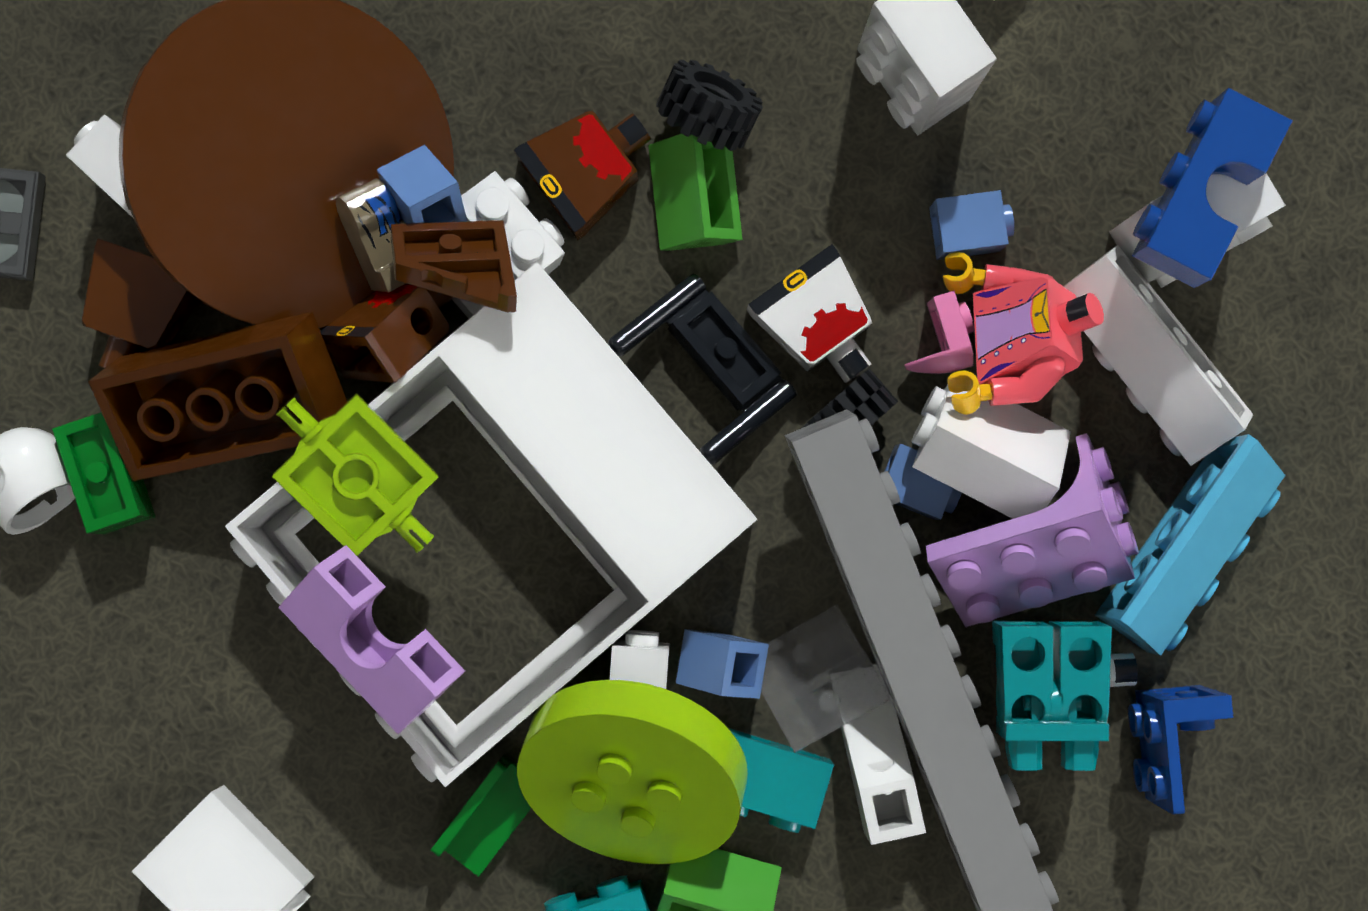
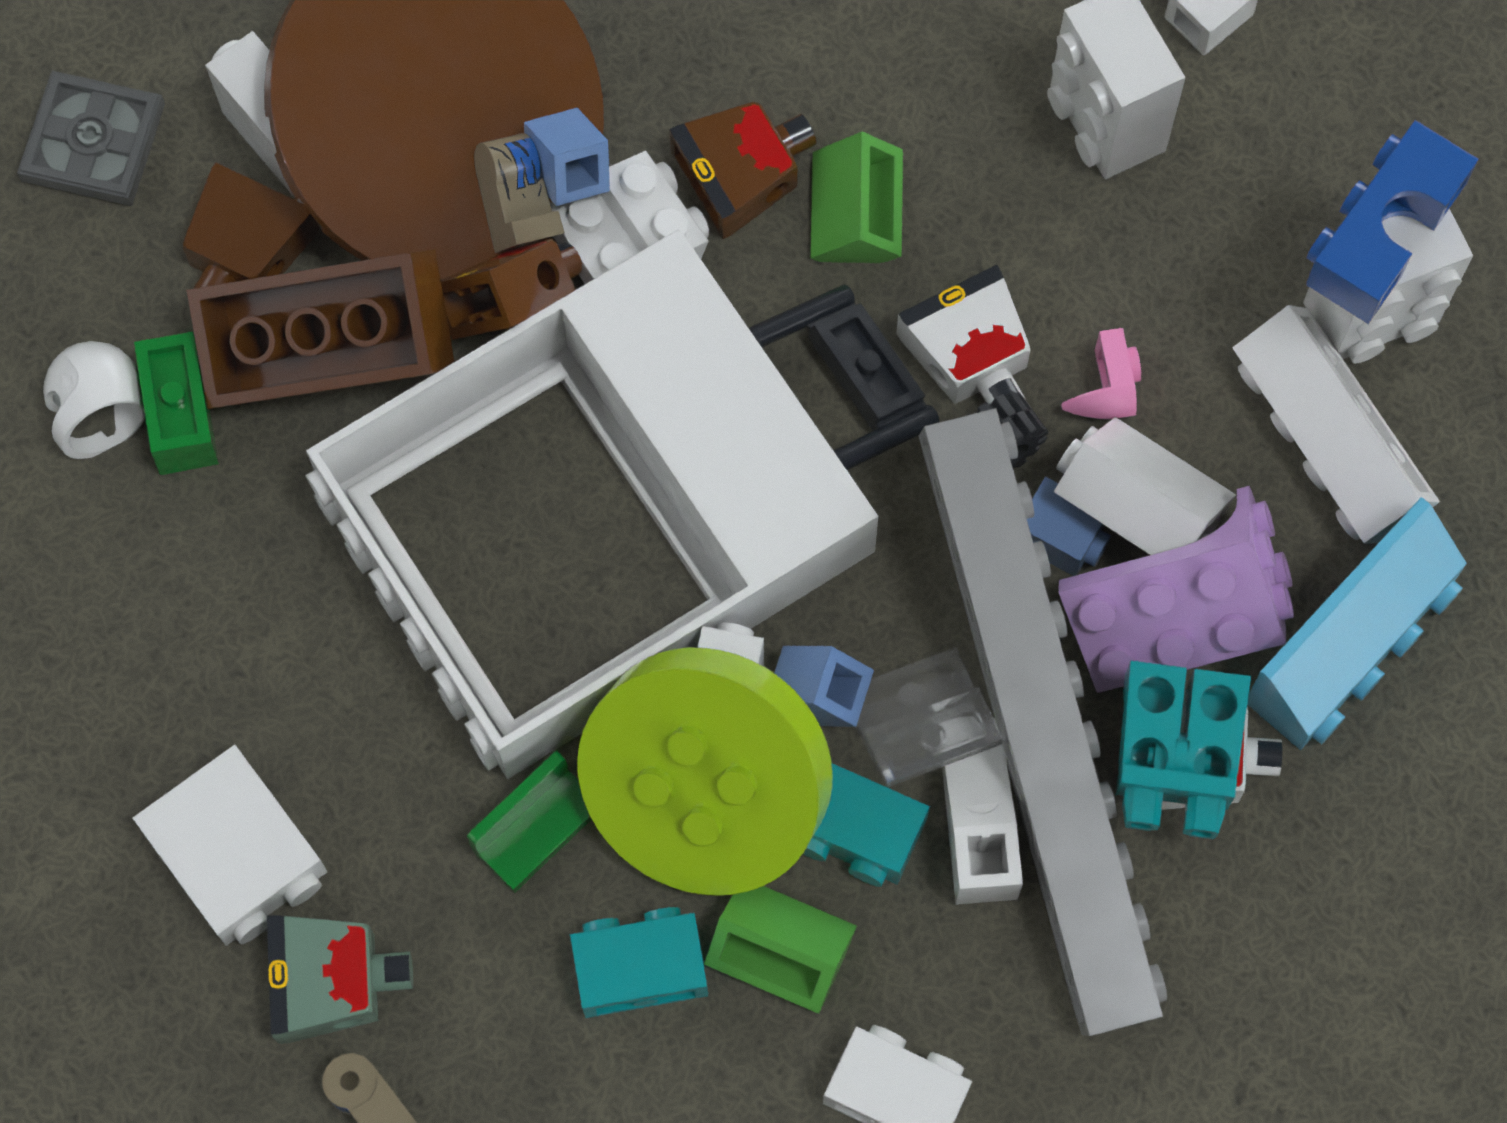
camera: 10 degrees right, 15 degrees down
(336, 616) = (411, 540): lavender arch -> none
(355, 475) = (456, 409): lime plate -> none
(457, 260) = (595, 215): reddish brown wing -> none
(709, 105) = (883, 111): black tyre -> none
(971, 224) = (1150, 270): medium blue brick -> none
(1023, 333) = (1191, 375): coral torso -> none
(1156, 723) = (1315, 796): blue bracket -> none

